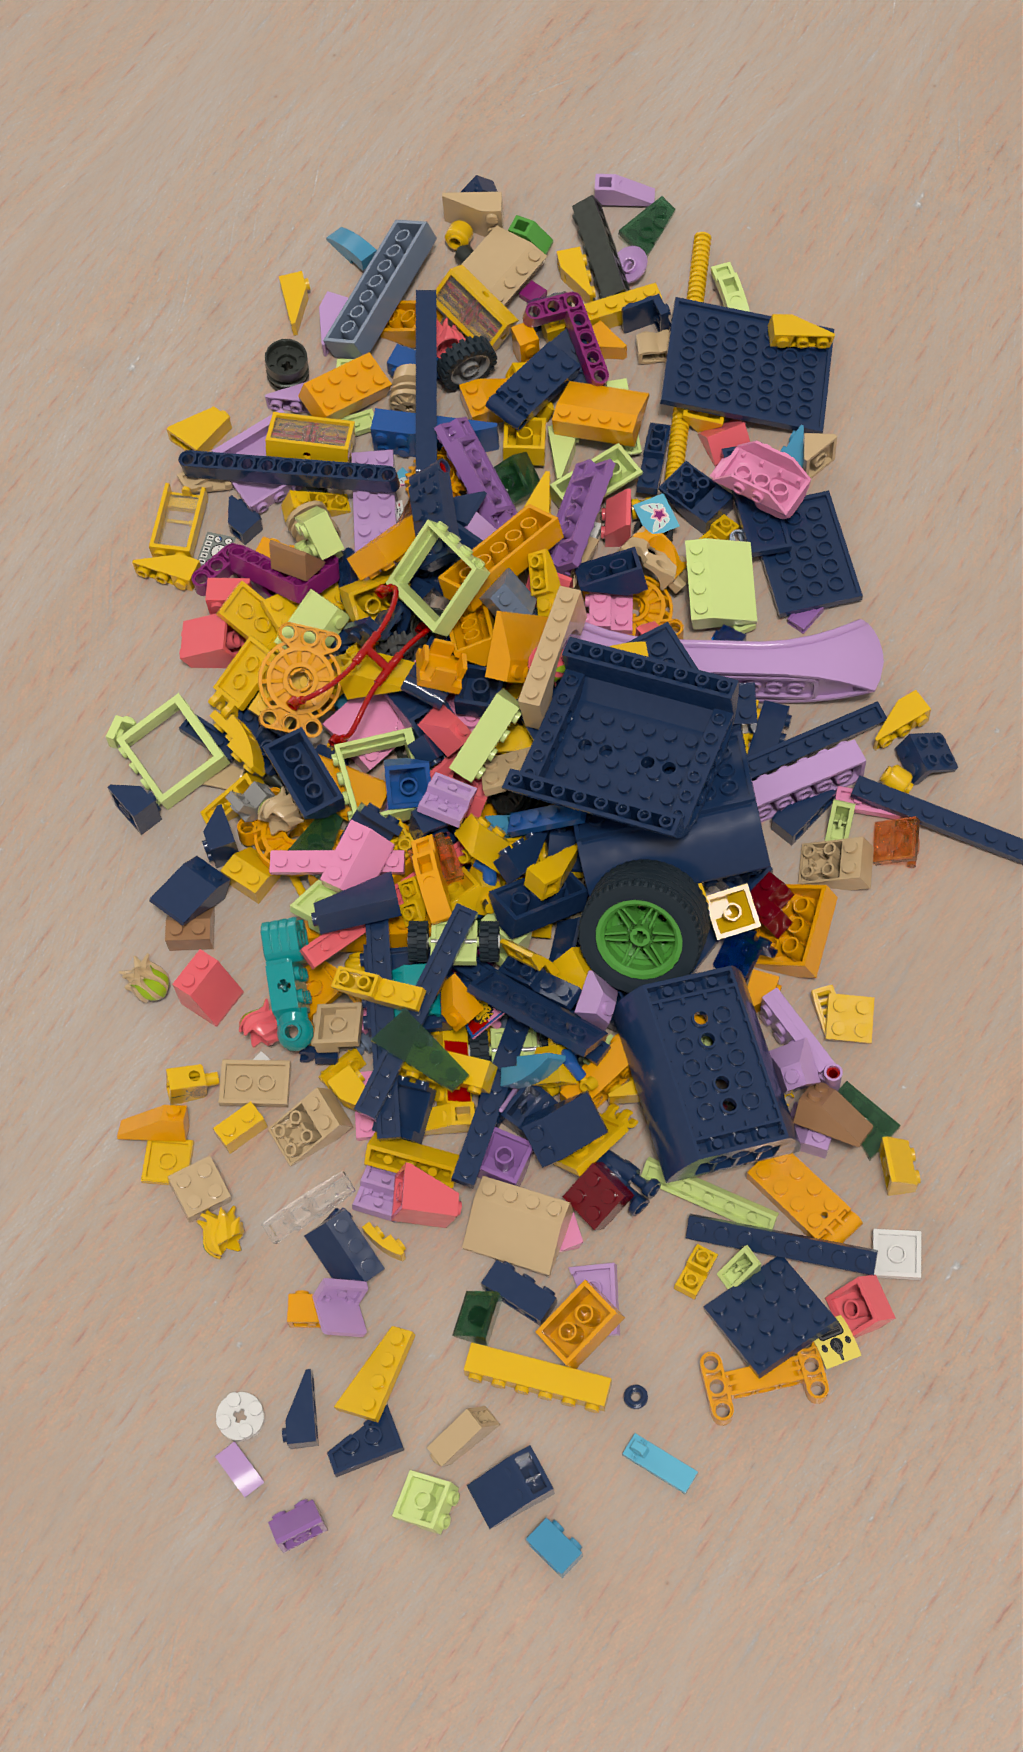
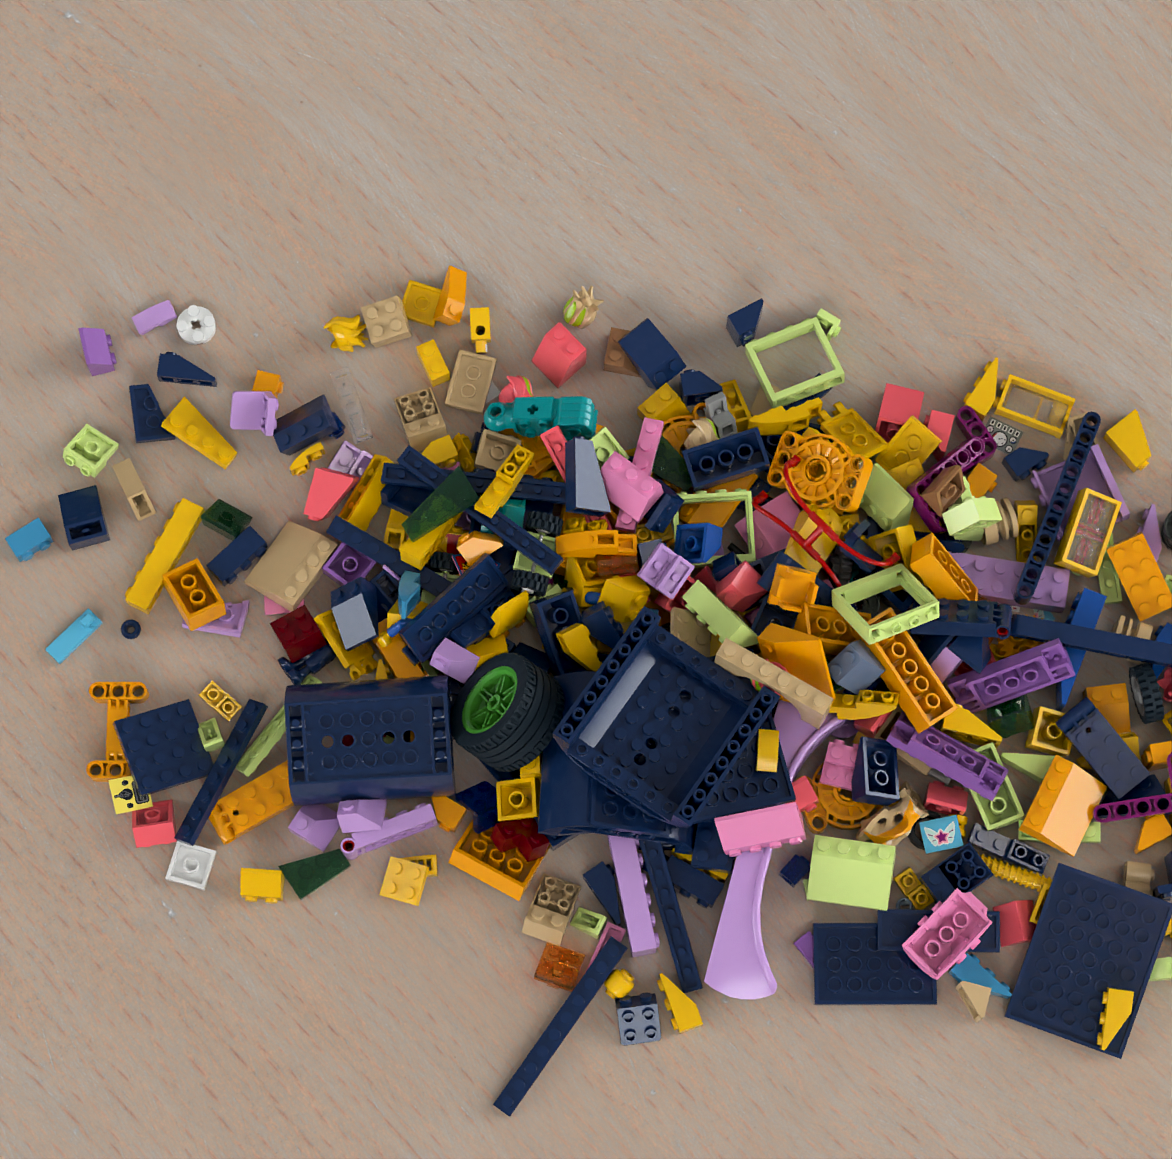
camera: 95 degrees right, 10 degrees up
(709, 637) = (761, 829): none -> bright pink slope
(832, 1115) = (313, 839): medium nougat slope -> none

